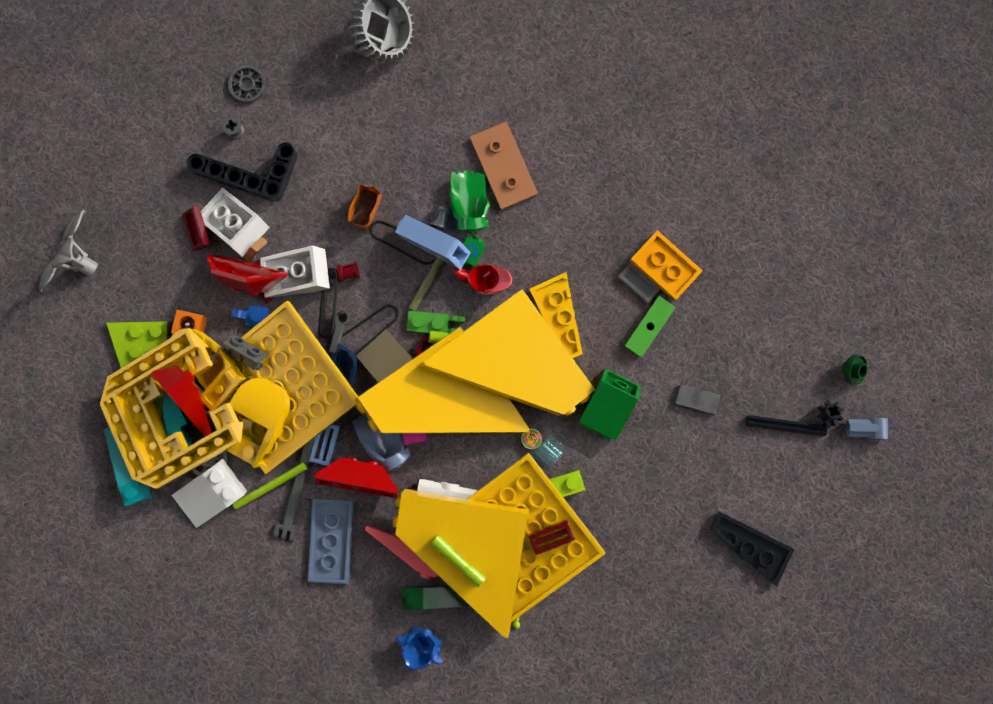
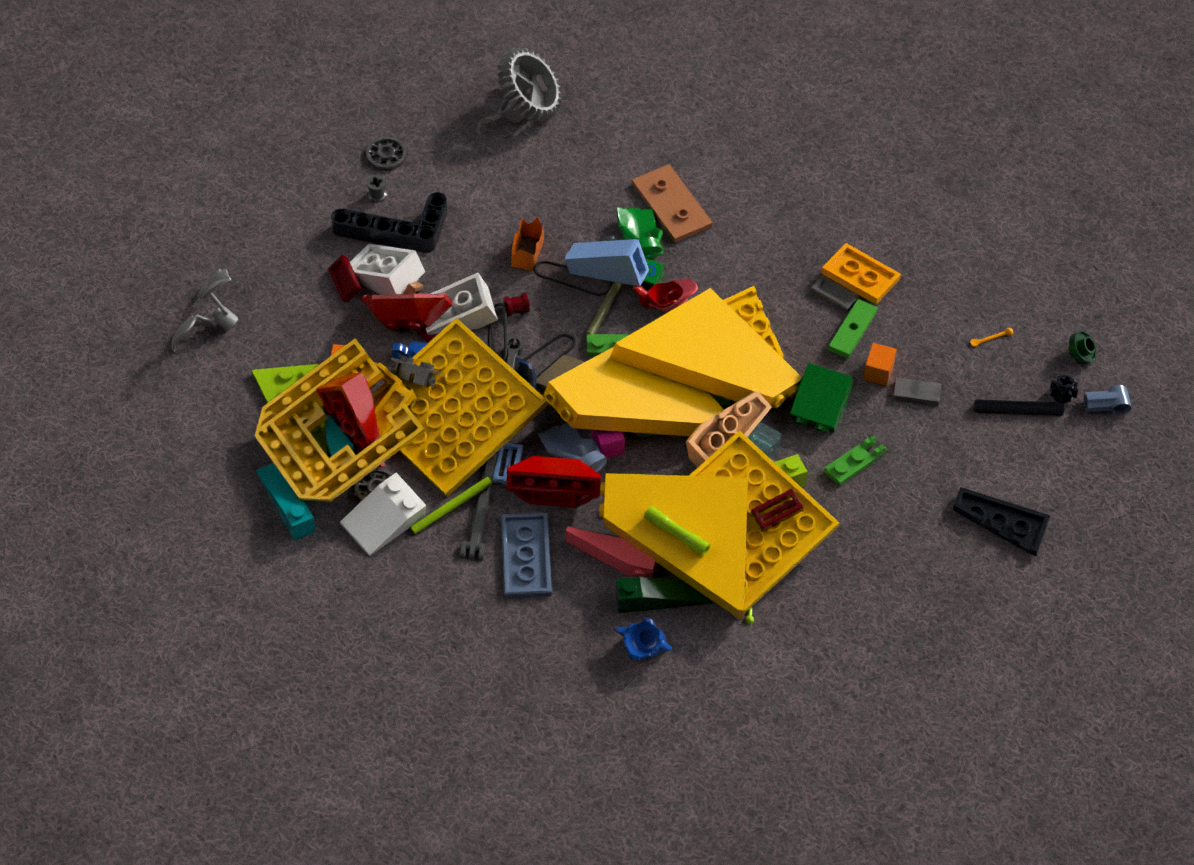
camera: 10 degrees left, 30 degrees down
(266, 405) = (439, 416): yellow slope -> none
(520, 442) = (720, 428): none -> light nougat wedge
(629, 471) = (854, 461): none -> bright green hinge
(668, 371) = (879, 364): none -> orange piece
(757, 349) = (975, 343): none -> light orange hinge

